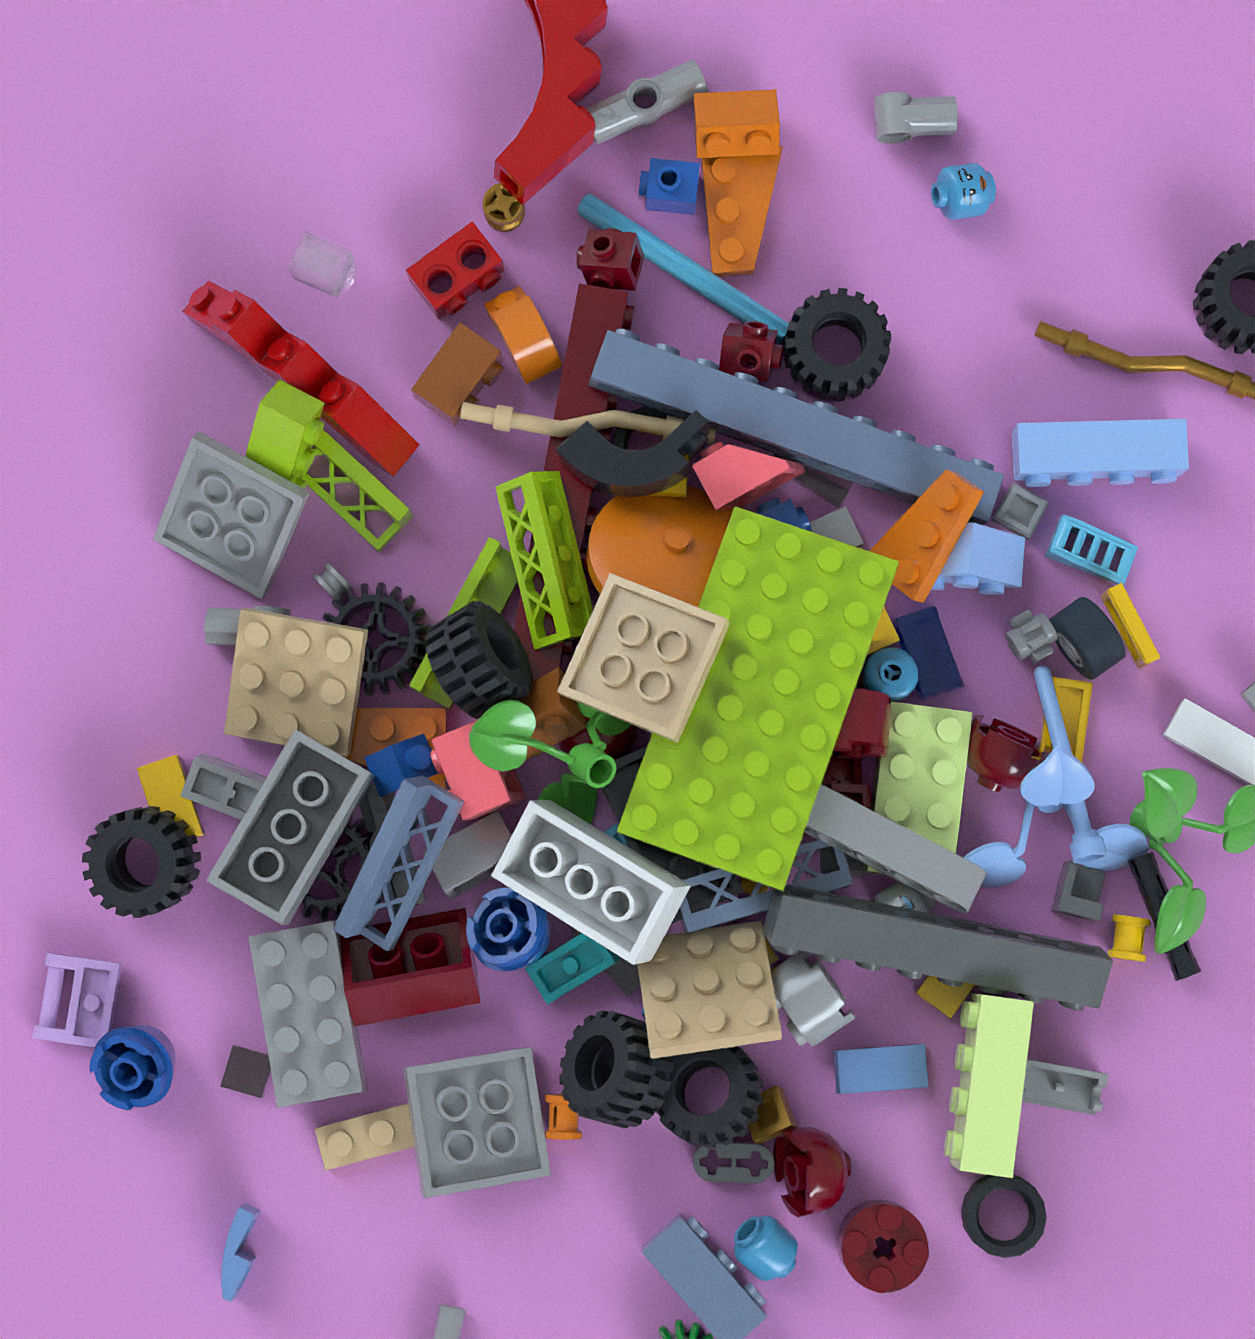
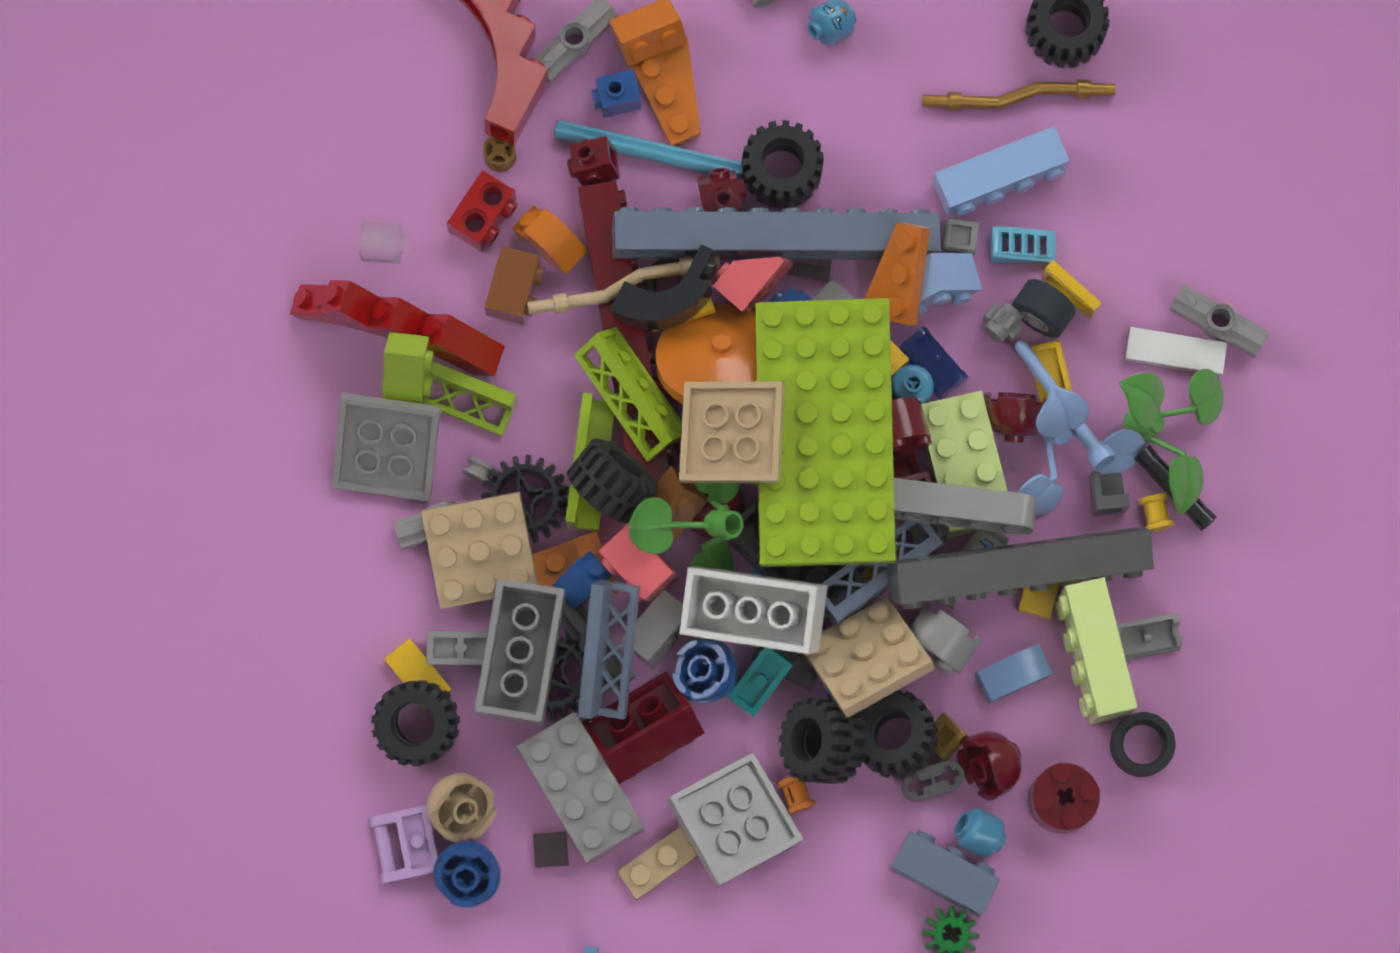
camera: 25 degrees left, 5 degrees down
(155, 983) = (461, 807): none -> tan cylinder

